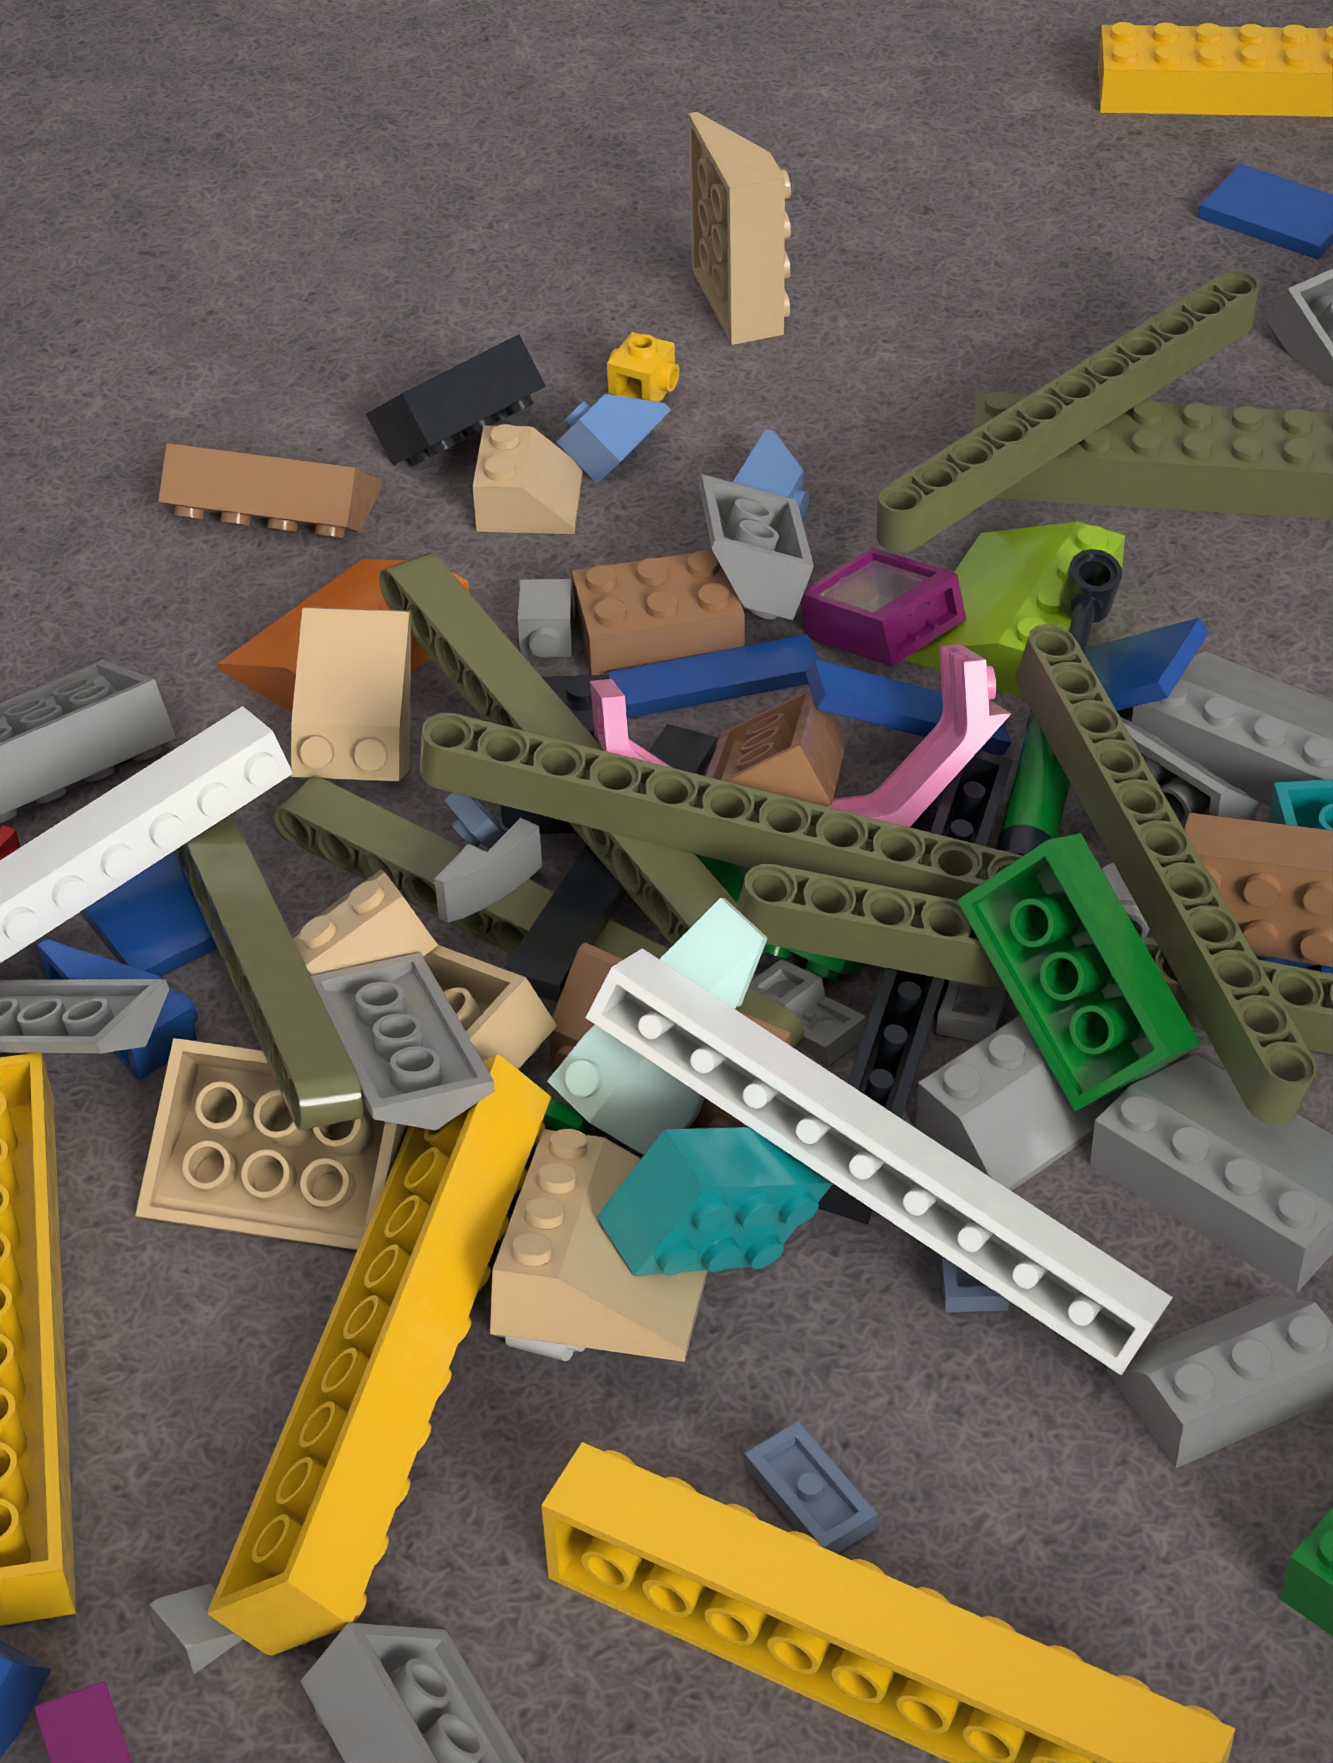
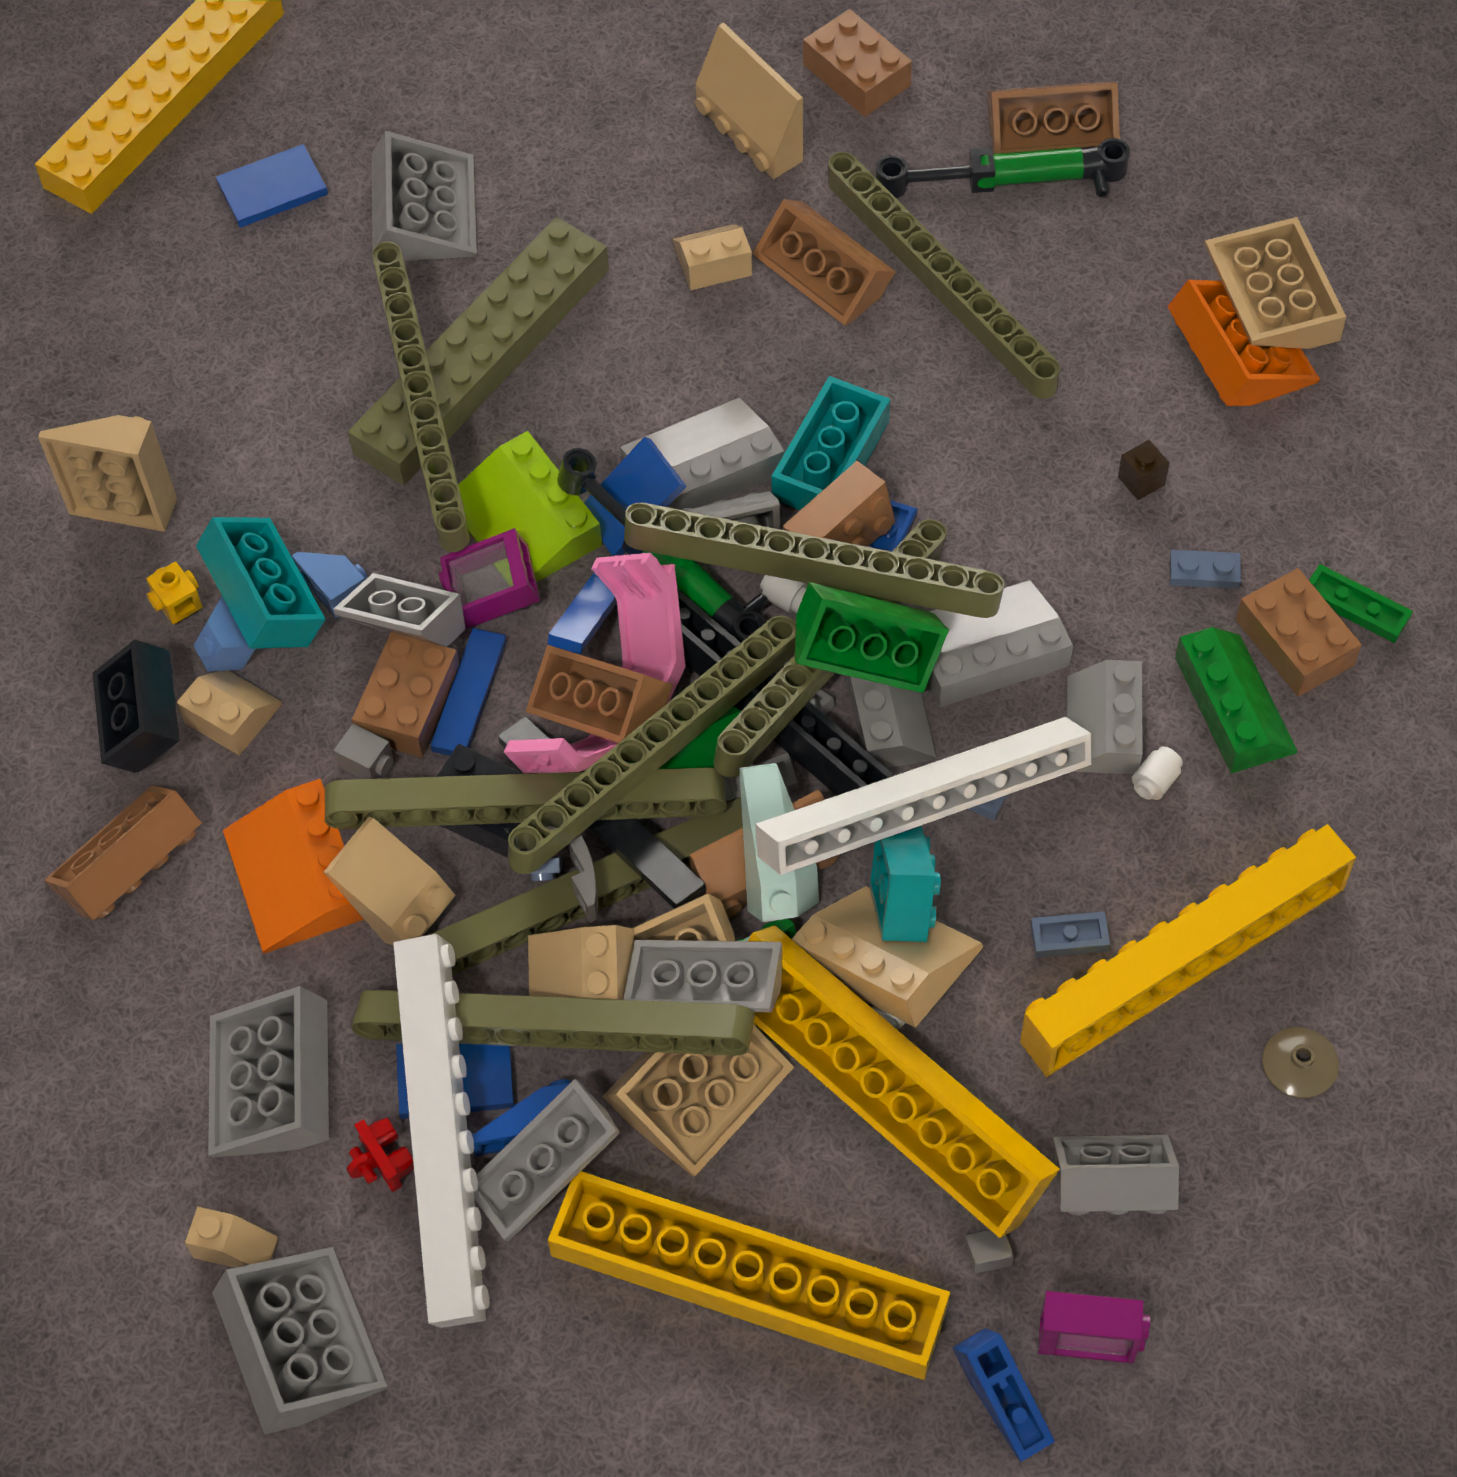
camera: 60 degrees left, 15 degrees up
(703, 419) = (260, 582): none -> teal brick
(1185, 1481) = (1157, 773): none -> white brick

